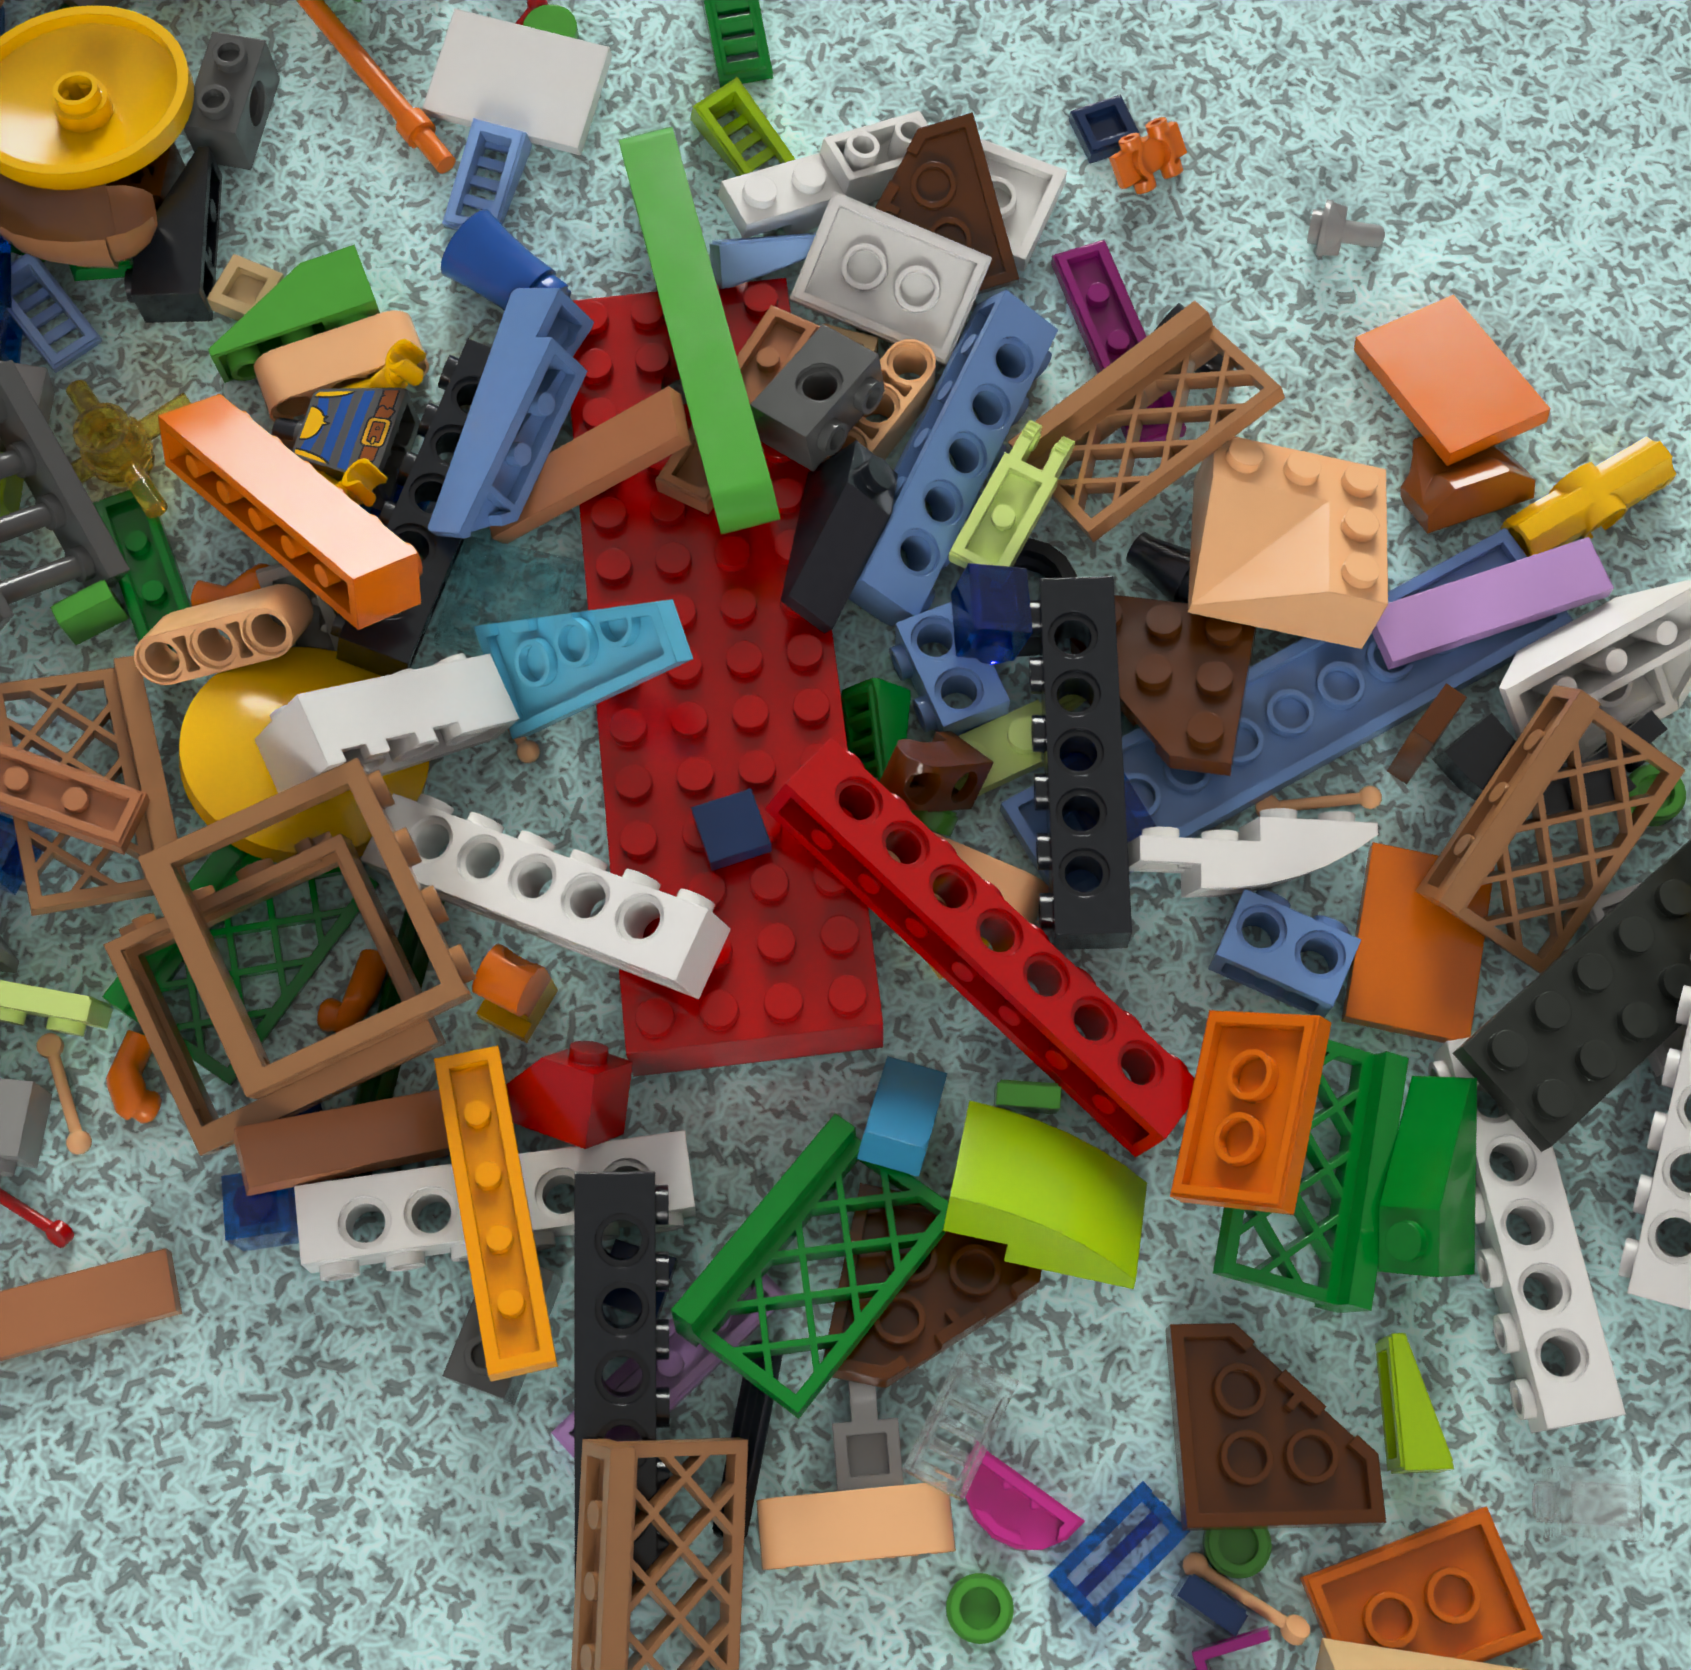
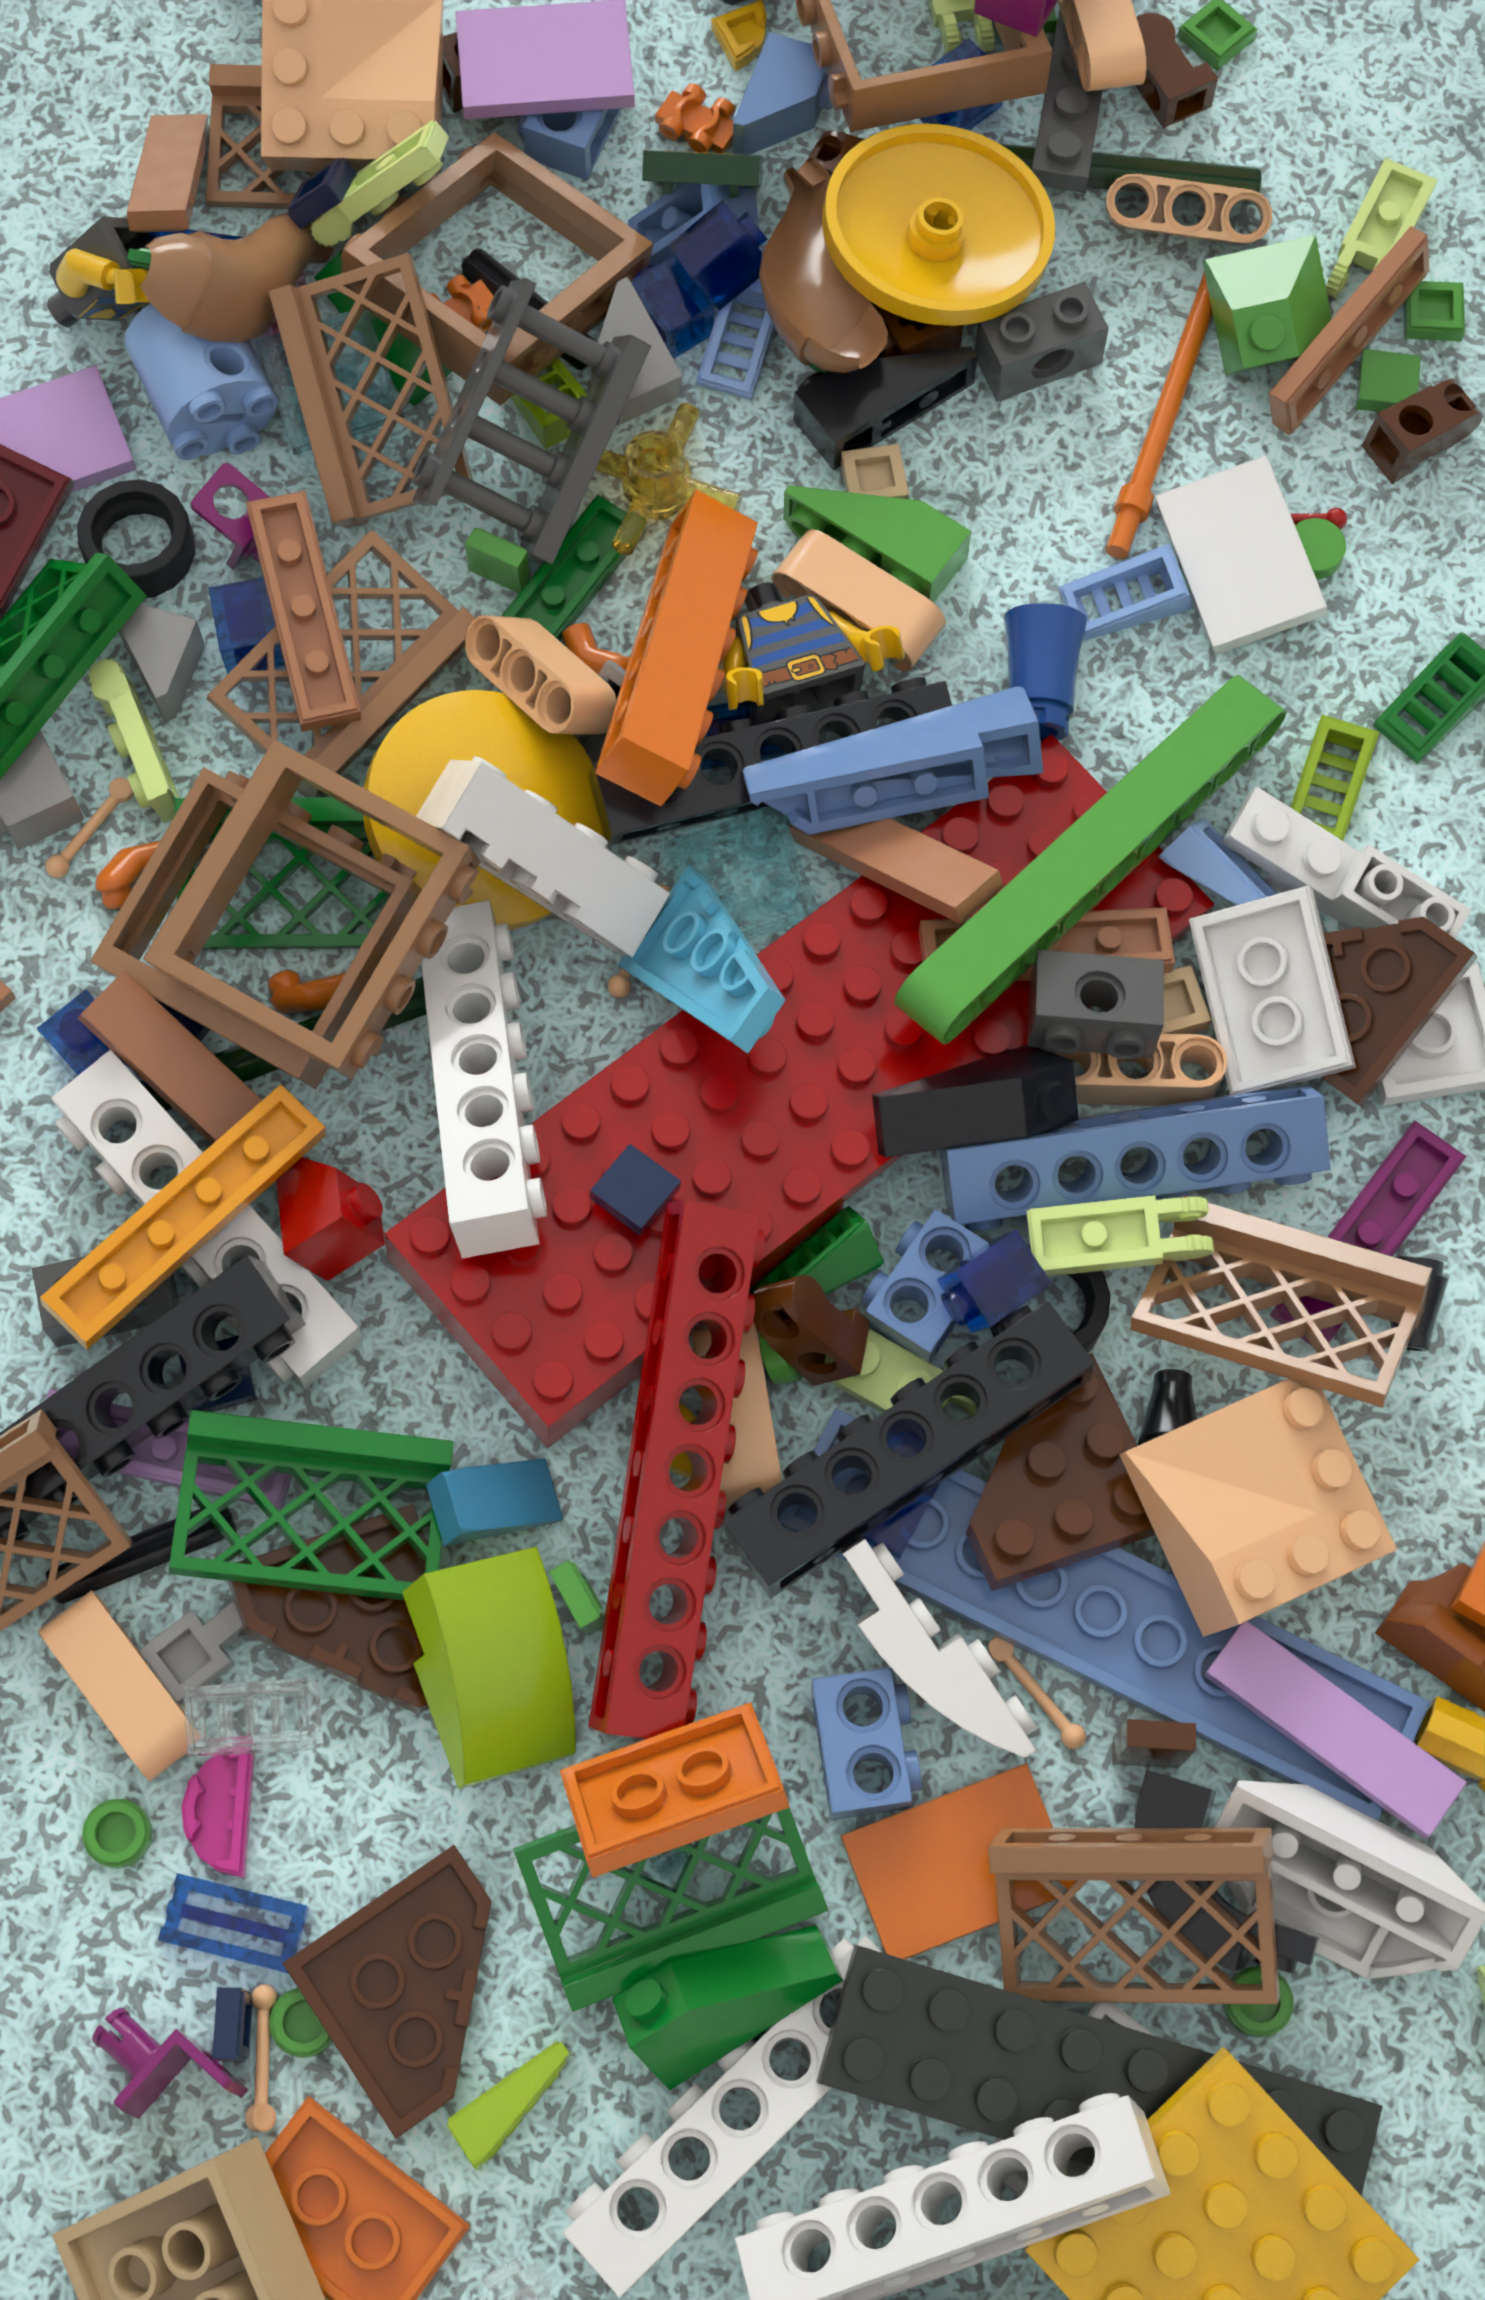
camera: 55 degrees right, 0 degrees up
(513, 992) = (391, 1111): orange leg -> none

